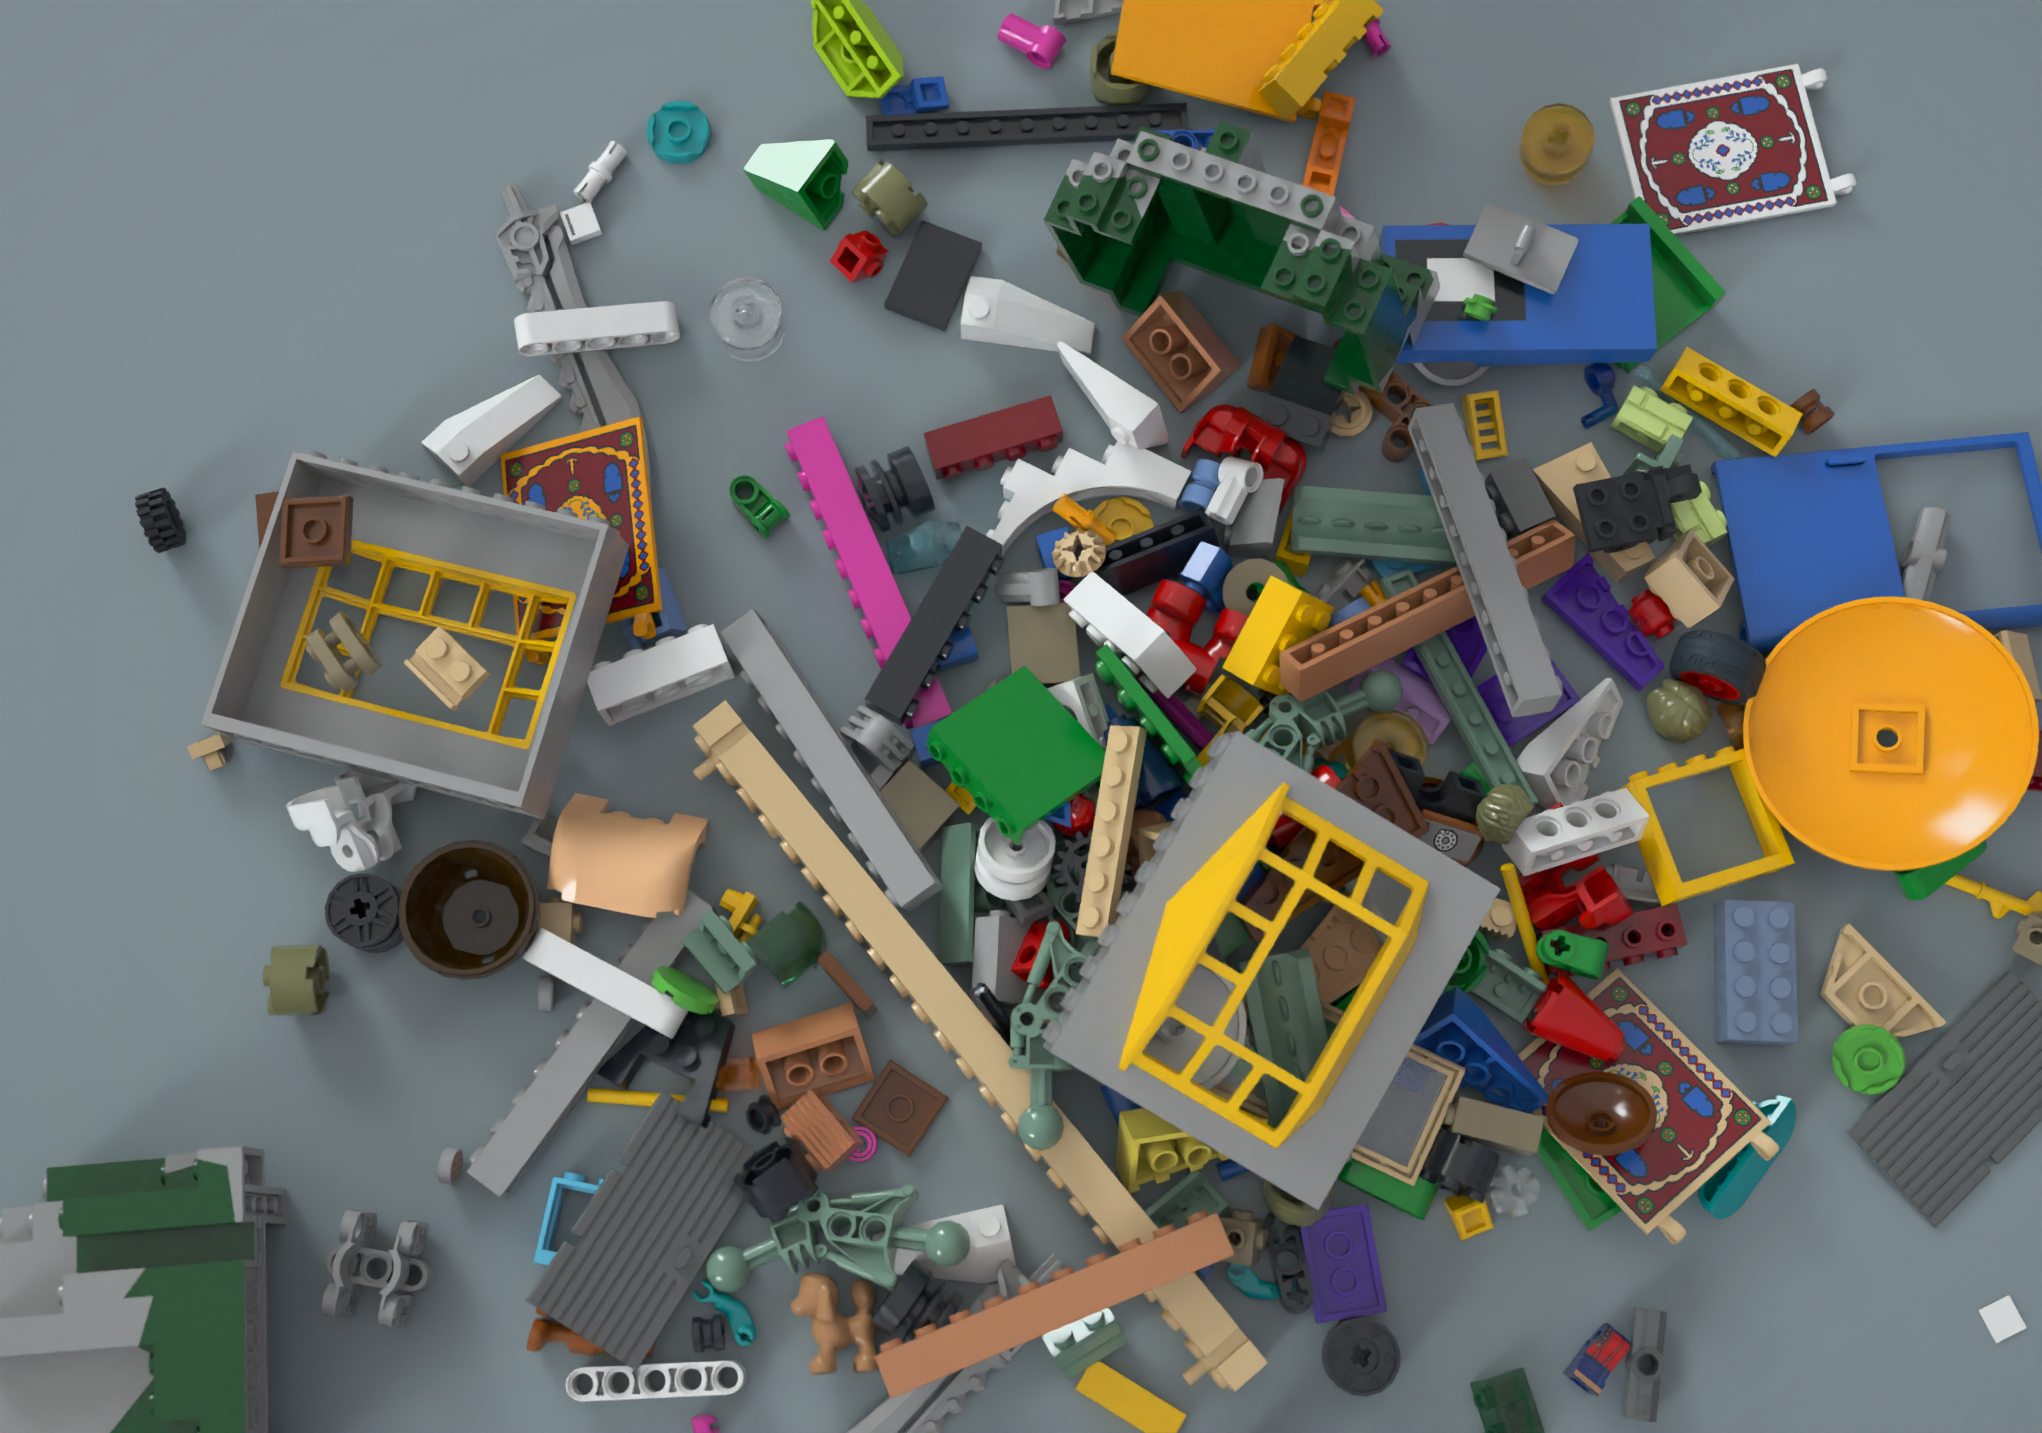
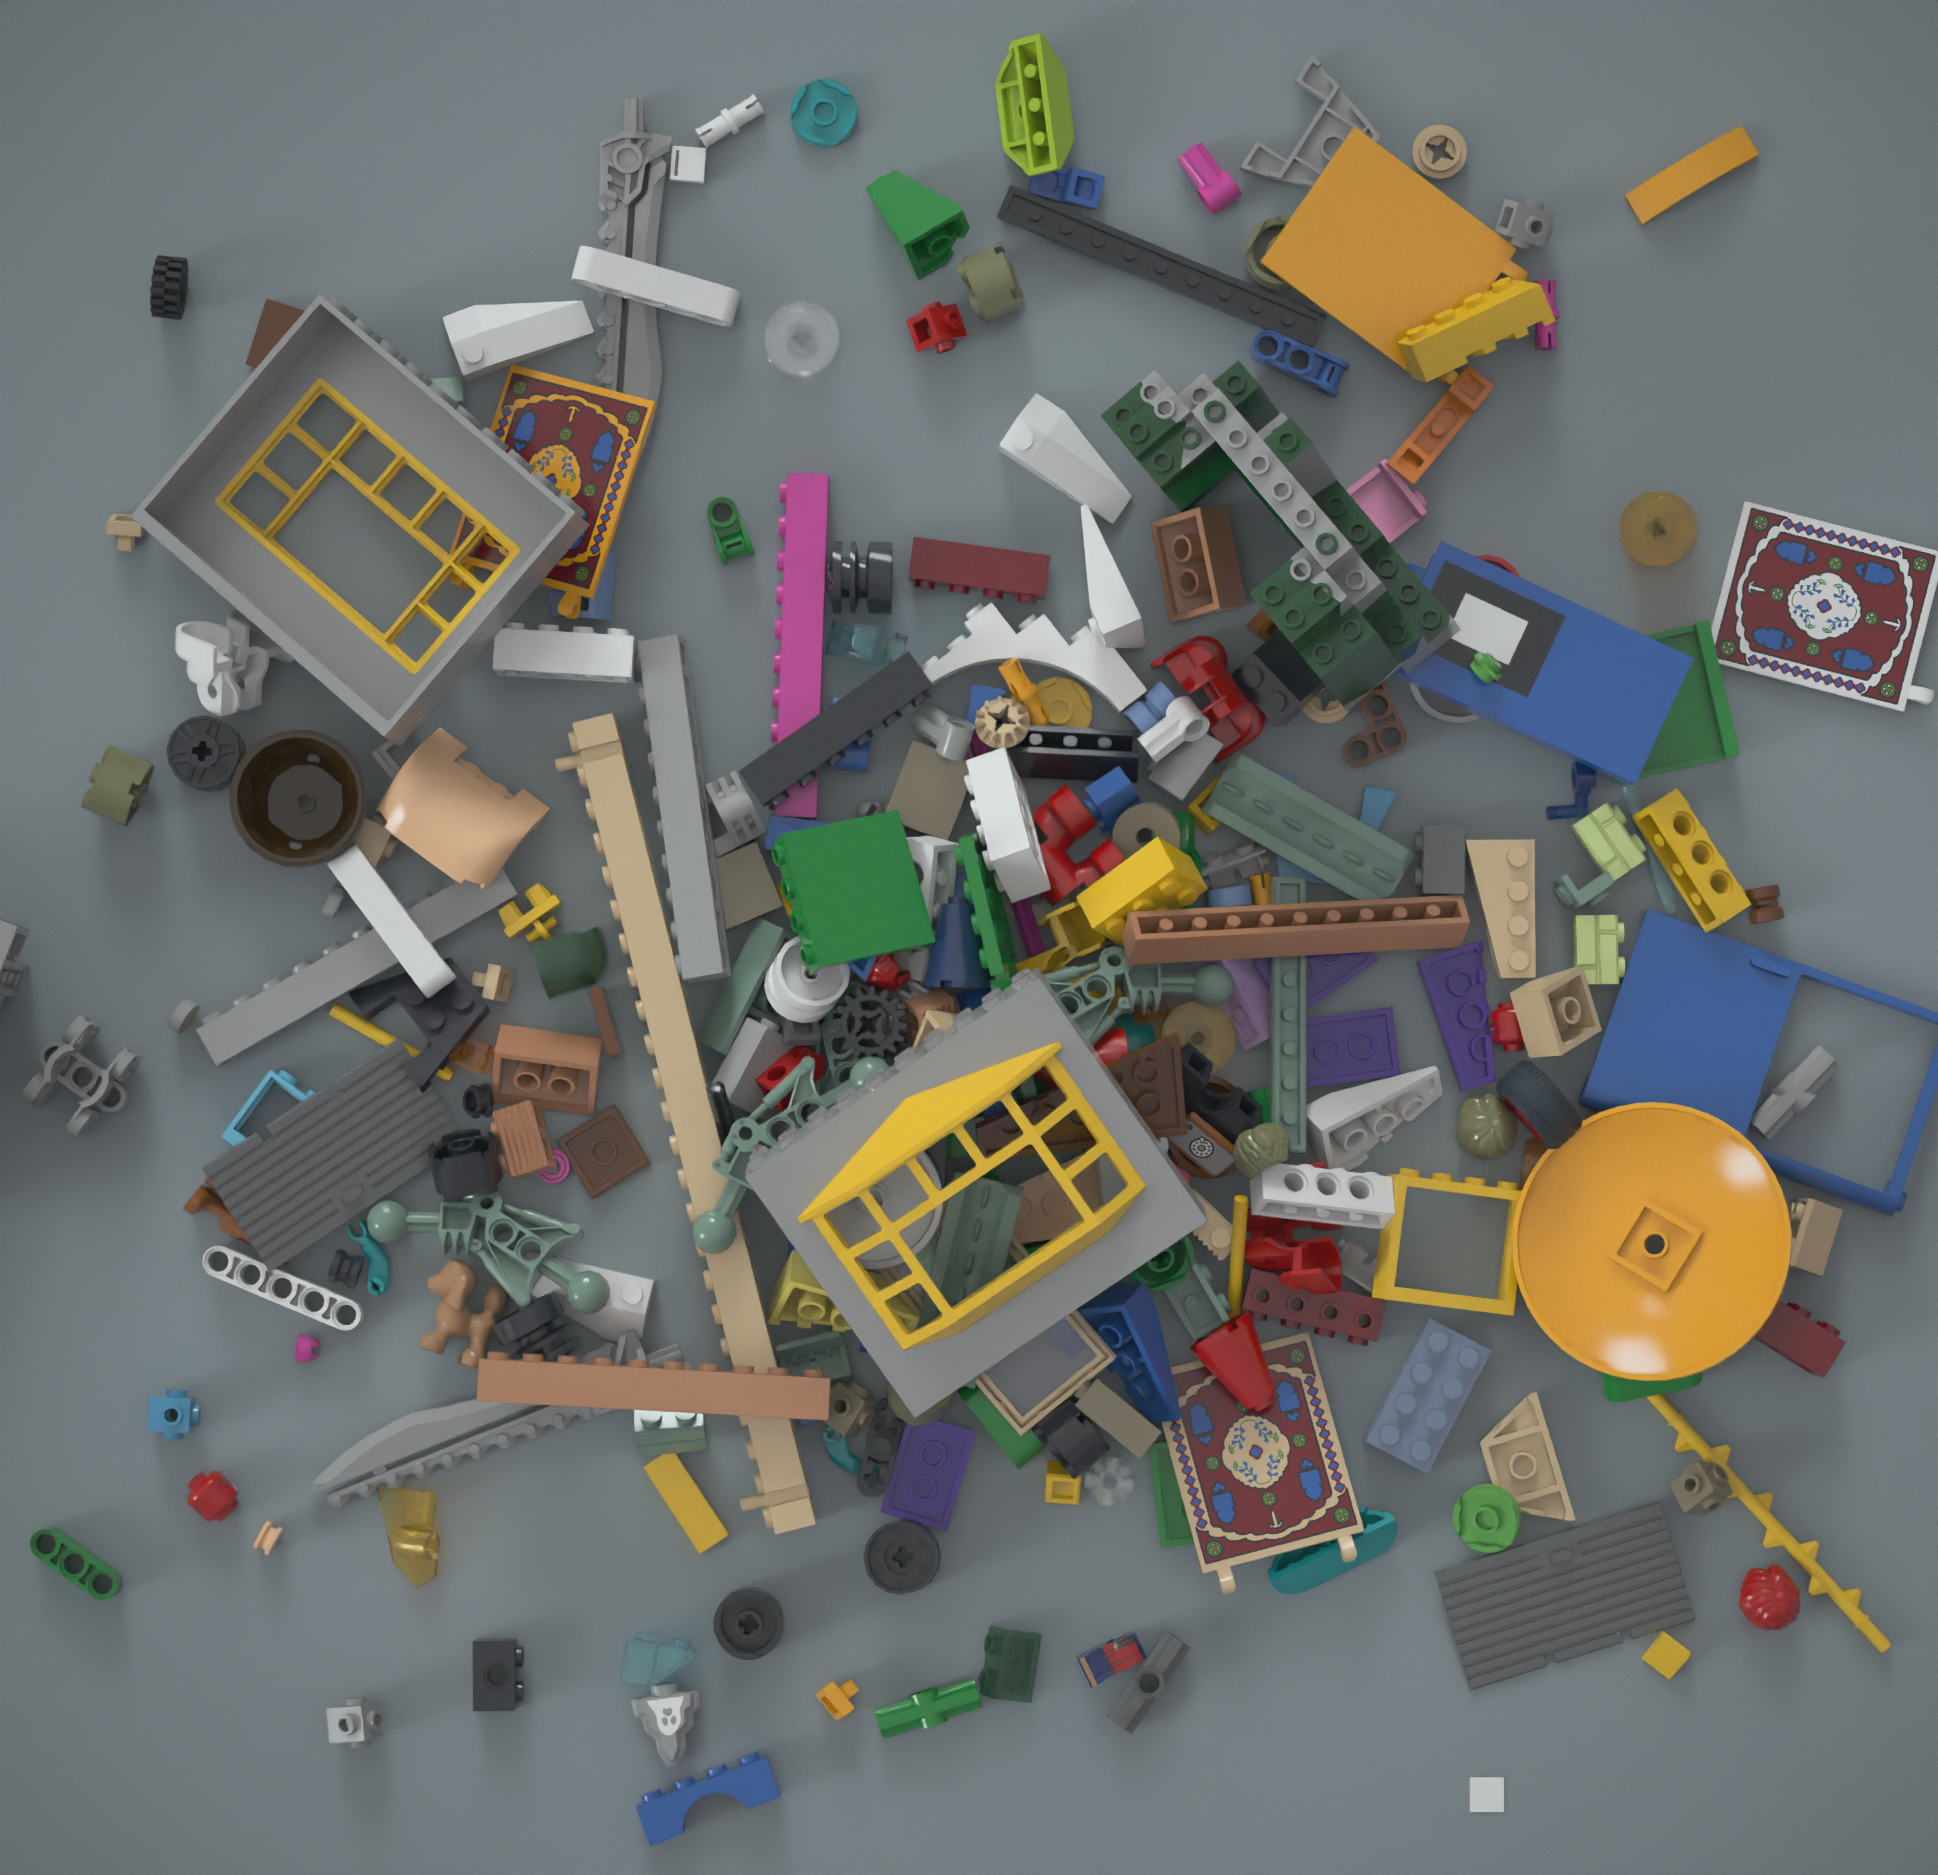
camera: 25 degrees right, 10 degrees up
(316, 531) = (309, 385): reddish brown tile -> none
(324, 650) = (270, 505): dark tan brick -> none
(447, 668) = (373, 576): tan plate -> none
(686, 990) = (461, 961): bright green tile -> none
(720, 952) = (504, 941): sand green bracket -> none
(933, 275) = (1000, 376): black tile -> none
(1111, 829) = (900, 1001): tan plate -> none
(1473, 428) = (1466, 761): yellow slope -> none
(1485, 561) = (1364, 908): light grey brick -> none
(1521, 247) = (1555, 627): light grey shield -> none
(1578, 953) = (1269, 1306): green piece -> none
(1601, 1113) = (1218, 1440): reddish brown dish -> none
(1633, 507) = (1528, 925): black plate -> none

